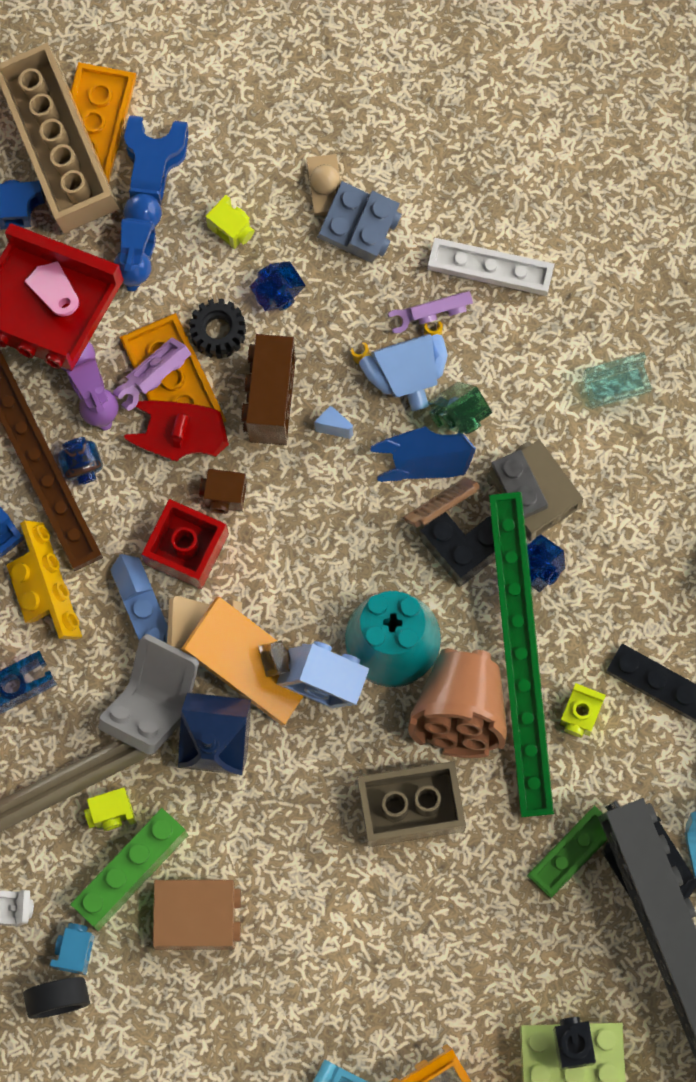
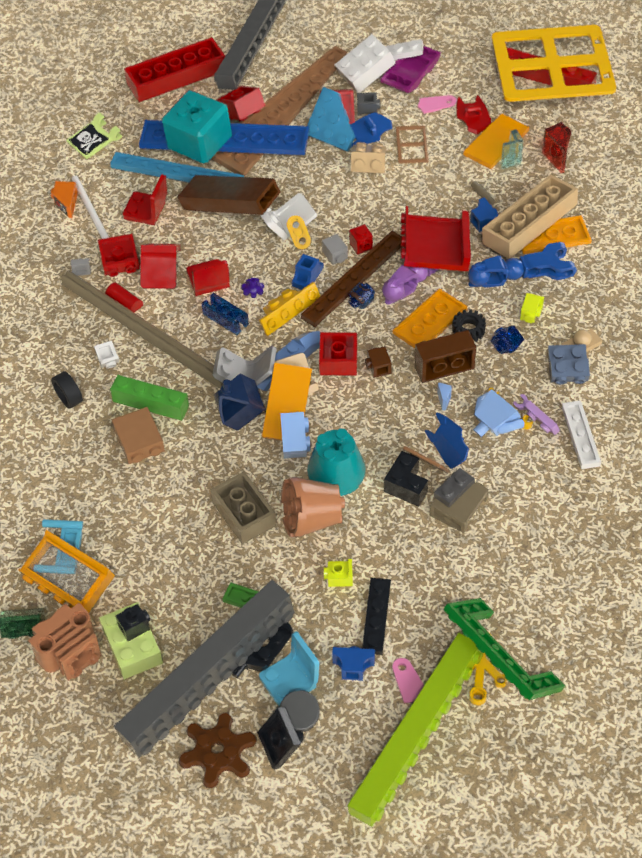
camera: 65 degrees right, 20 degrees down
(53, 288) = (443, 241): bright pink piece -> none
(73, 949) = (96, 391): dark azure brick -> none
(109, 810) = (178, 378): neon yellow brick -> none
(152, 371) = (422, 304): lavender plate -> none
(180, 430) = (402, 331): red shield -> none
(274, 658) = (293, 407): clear smoke plate -> none
(459, 408) = (483, 443): clear green brick -> none
(521, 654) = (354, 524): green plate -> none
(545, 562) = (414, 518): clear blue brick -> none
(616, 380) = (549, 519): clear light blue panel -> none

